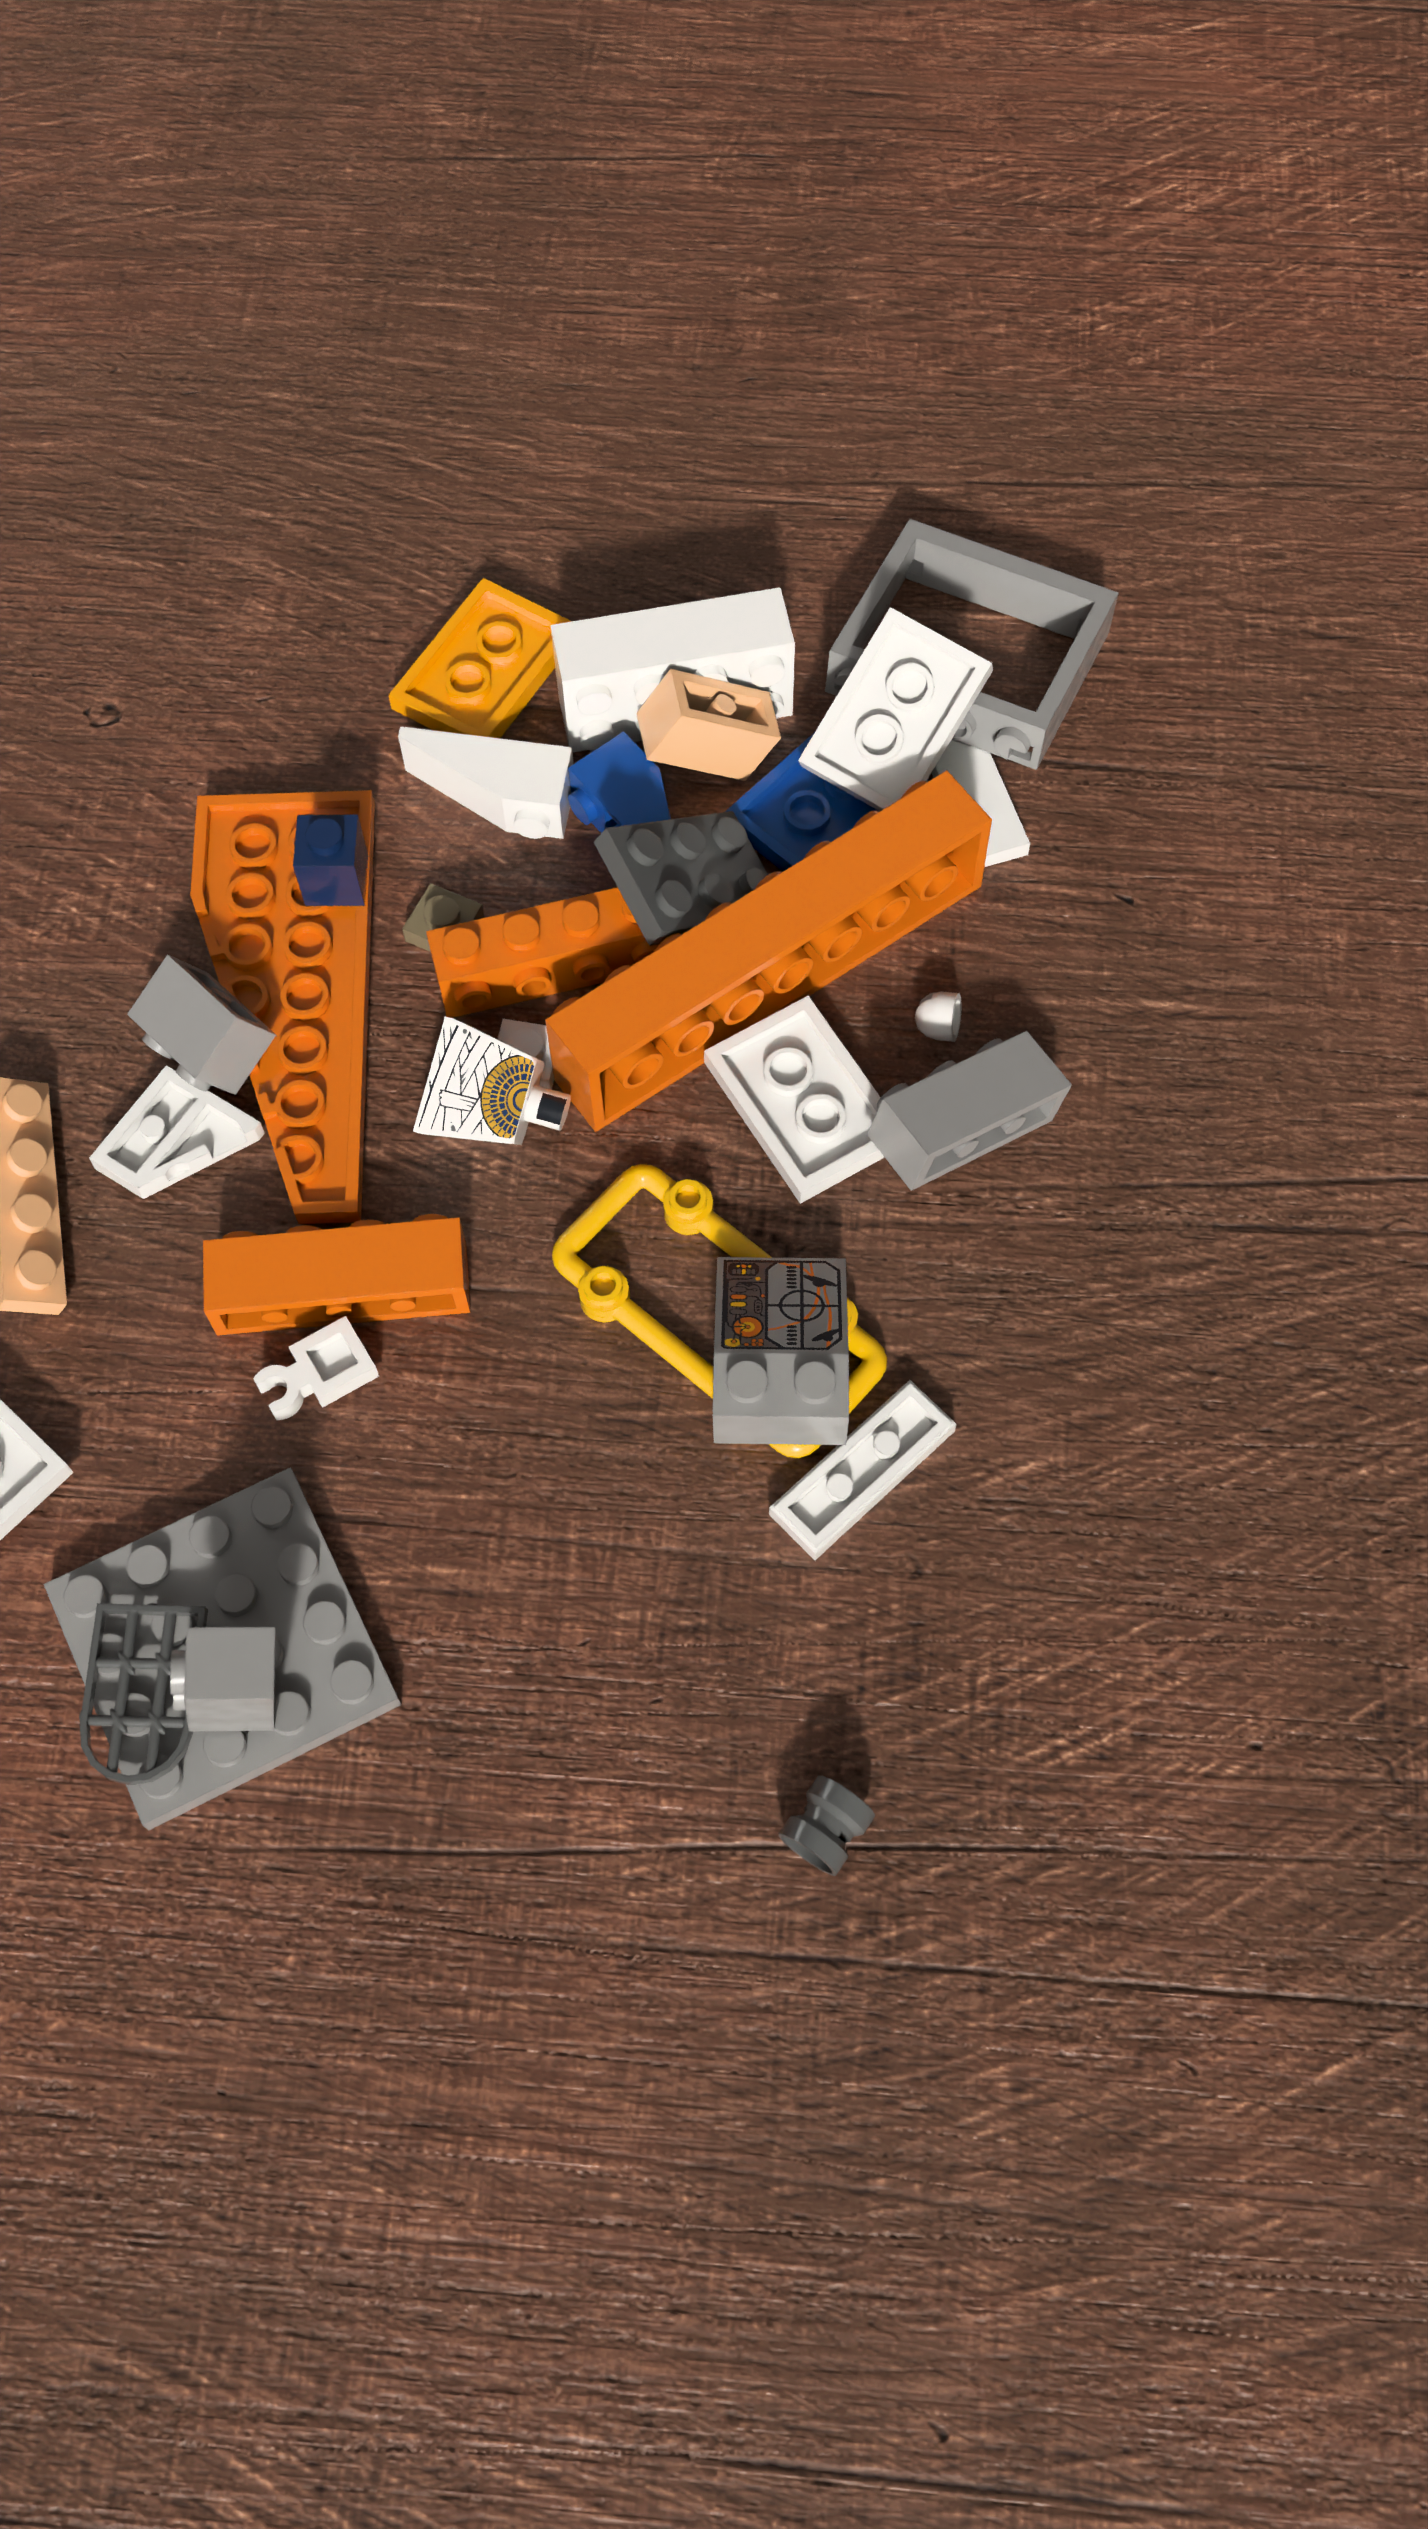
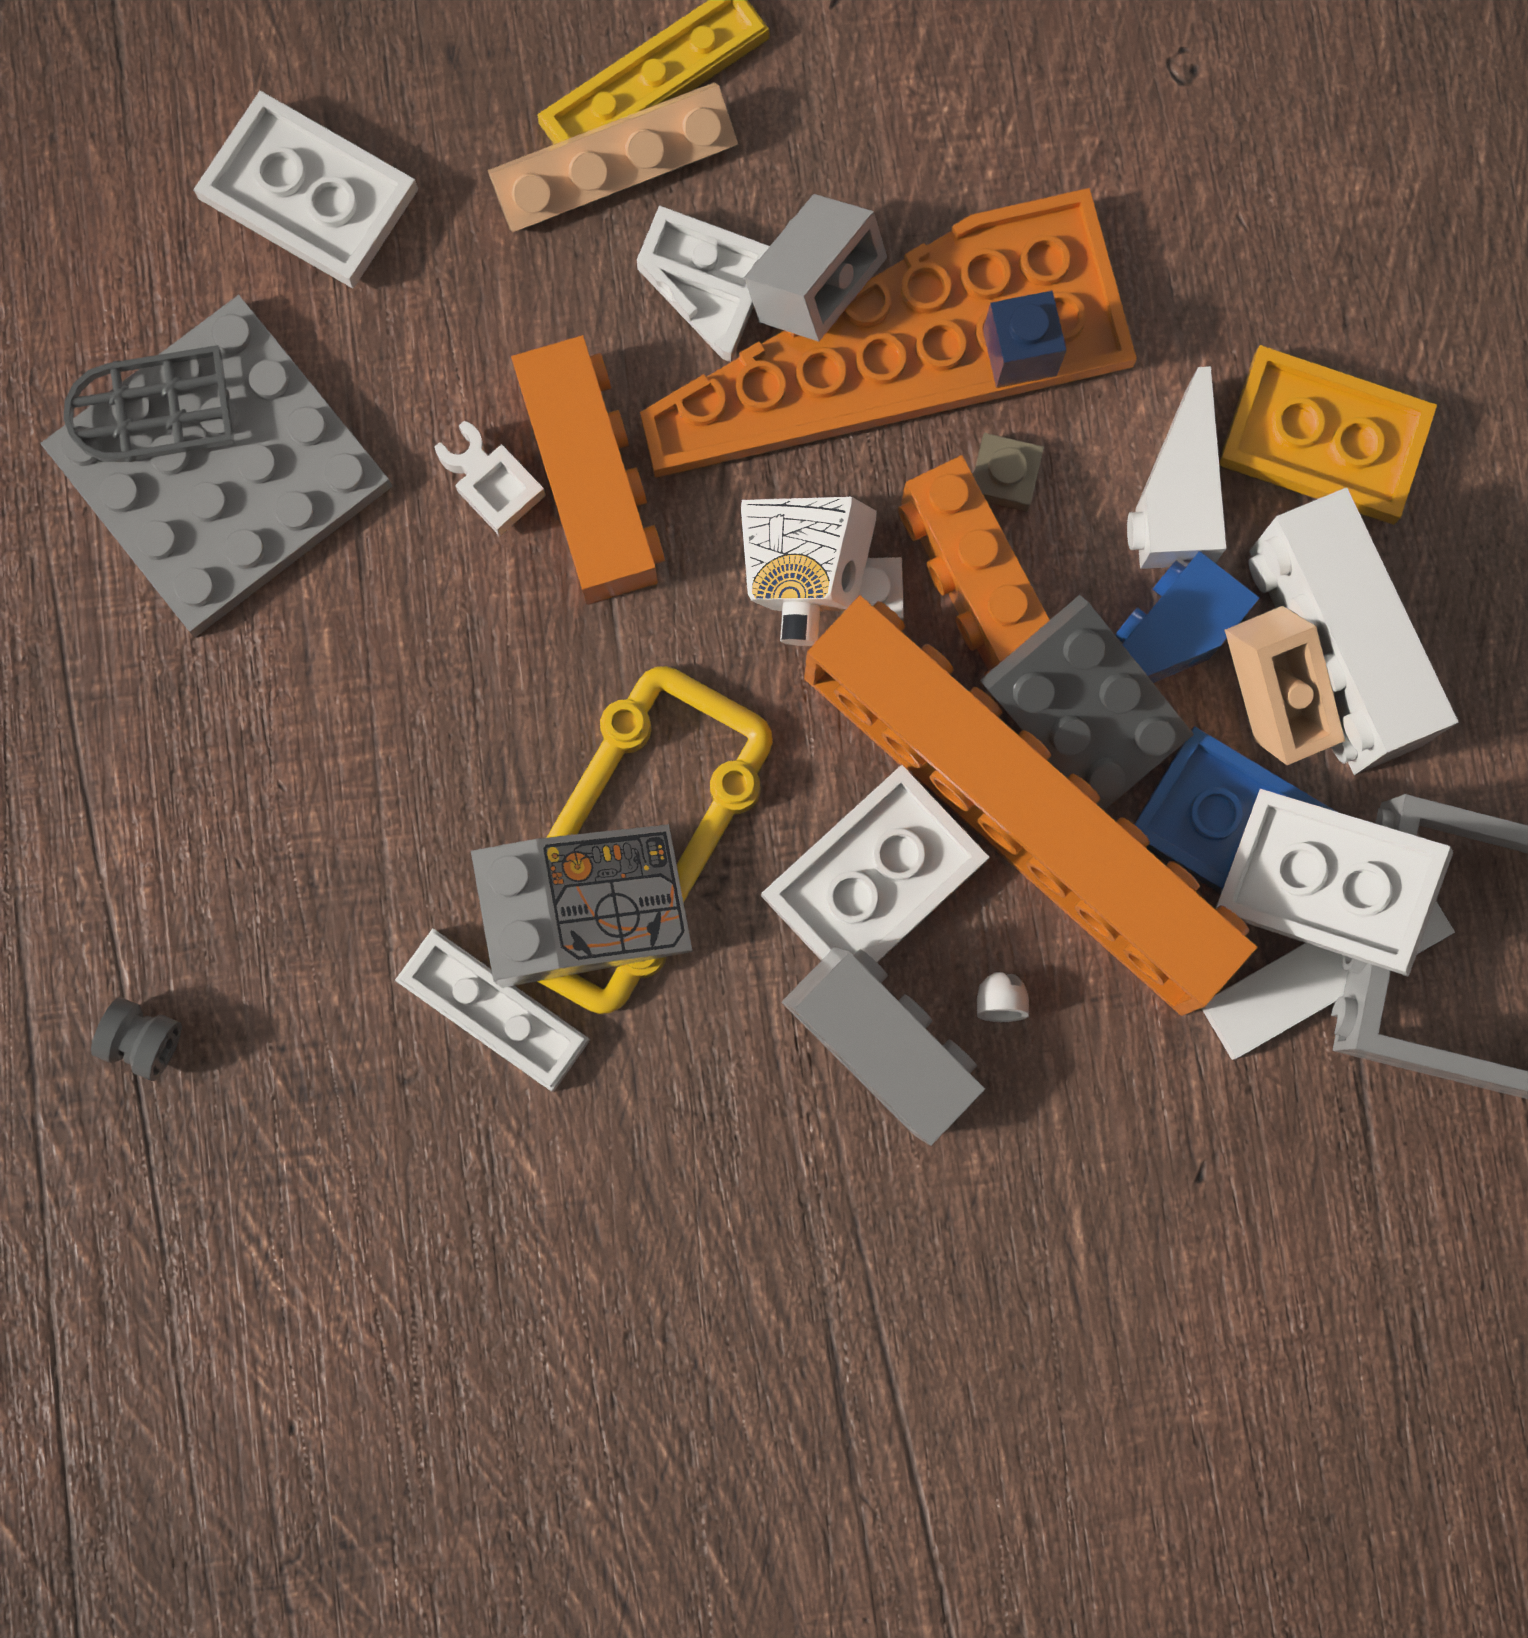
camera: 75 degrees right, 15 degrees up
(225, 1678) = (140, 475): light grey brick -> none

